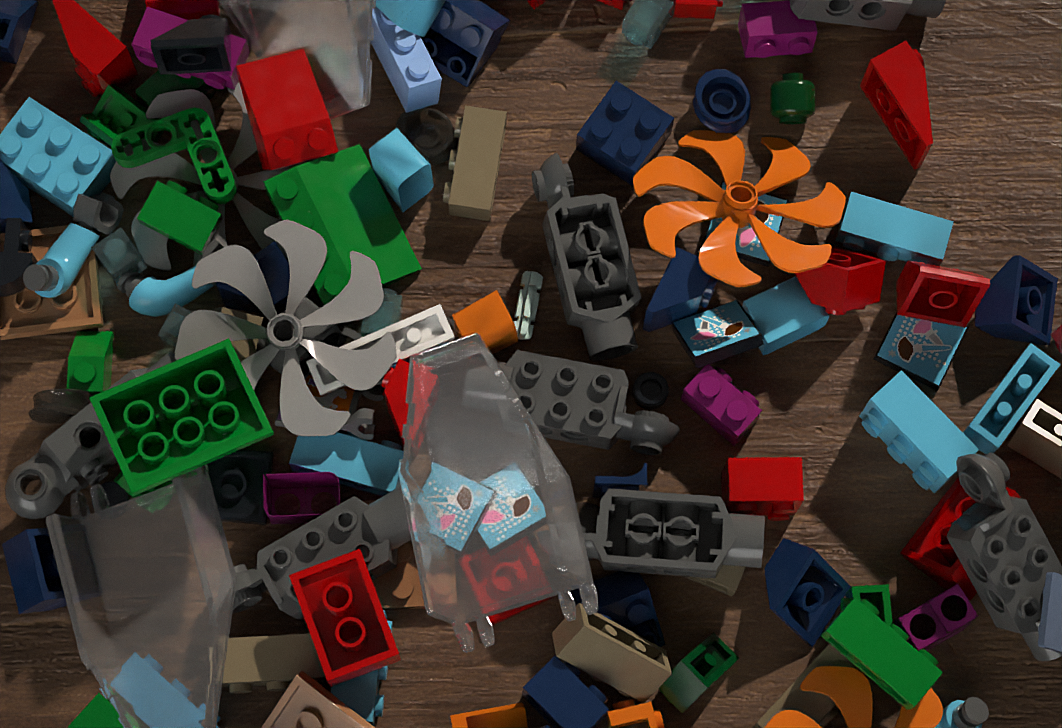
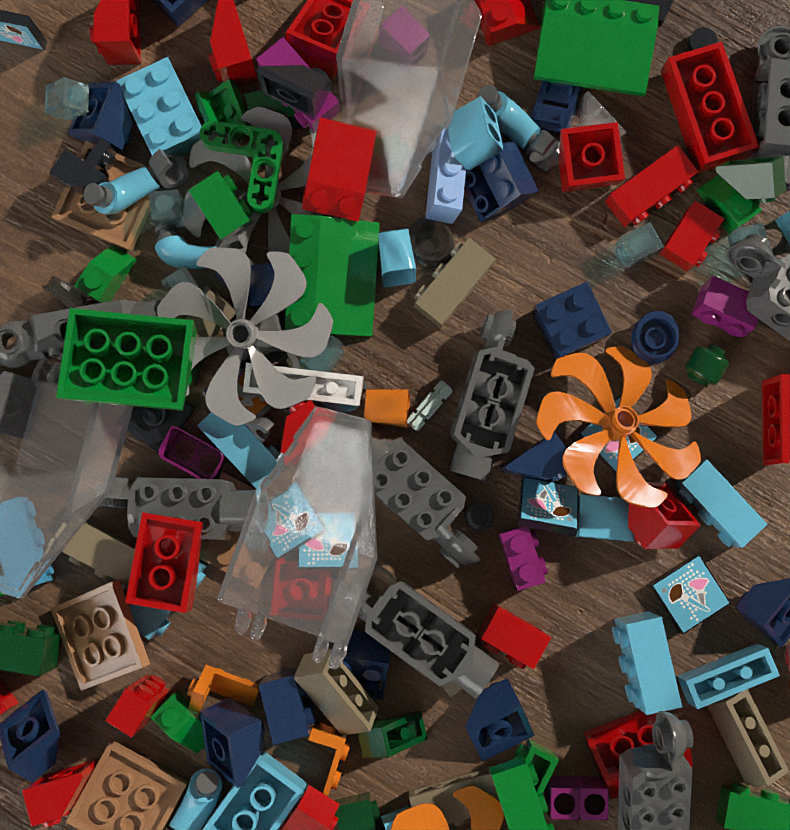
camera: 30 degrees right, 10 degrees up
(635, 482) = (414, 580): dark blue piece -> none
(939, 293) = (725, 570): red slope -> none

